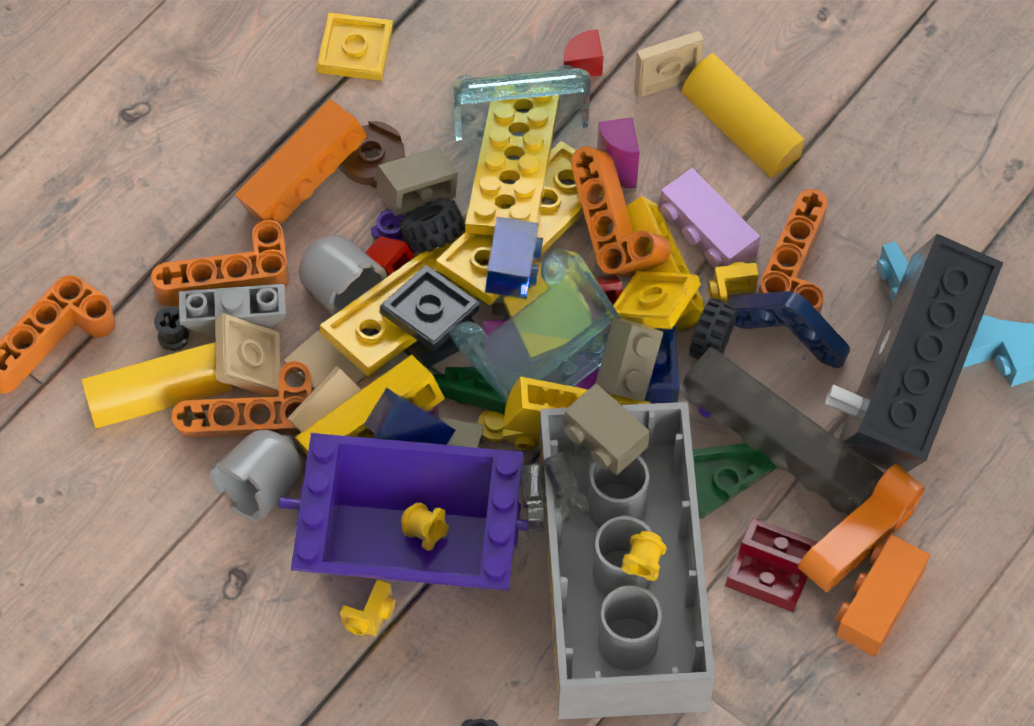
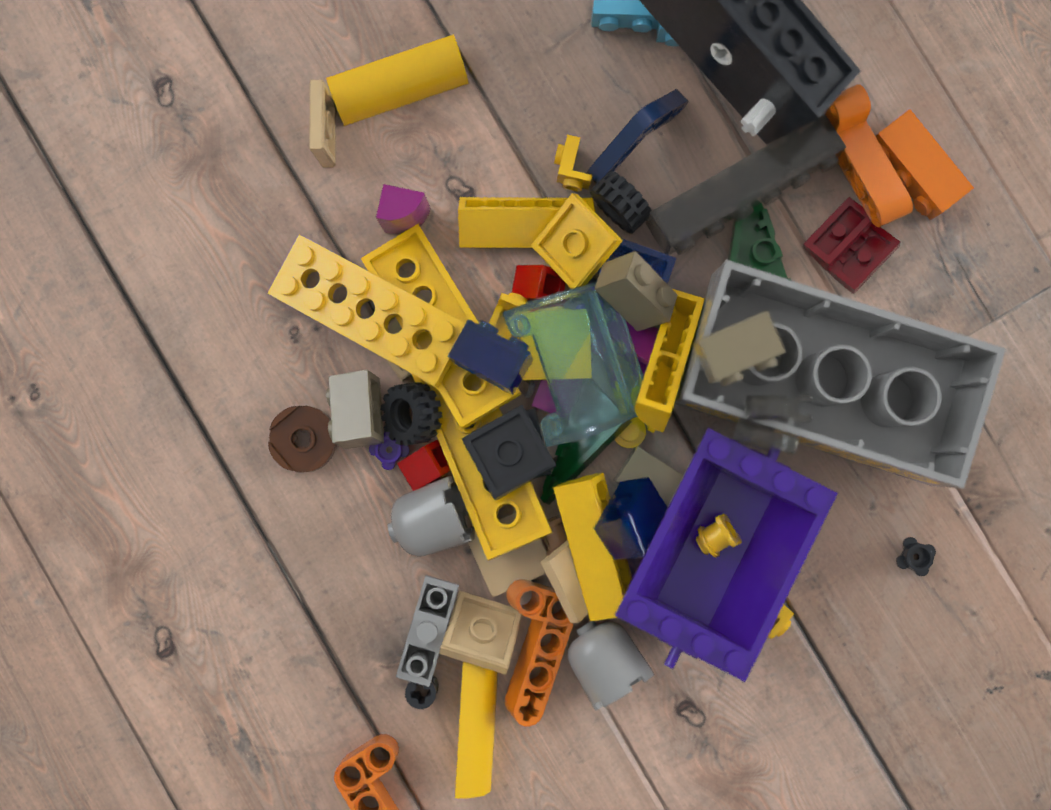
camera: 65 degrees left, 25 degrees up
(222, 268) = (378, 623): orange beam -> none
(301, 164) = (299, 512): orange brick -> none
(355, 46) = (173, 410): yellow tile -> none
(520, 85) = (298, 276): clear light blue windscreen -> none
(585, 52) = (275, 199): brick -> none
(596, 172) = (468, 241): orange beam -> none
(644, 555) = (878, 364): yellow brick -> none
(708, 220) = (500, 159): lavender brick -> none
(797, 251) = (566, 92): orange beam -> none

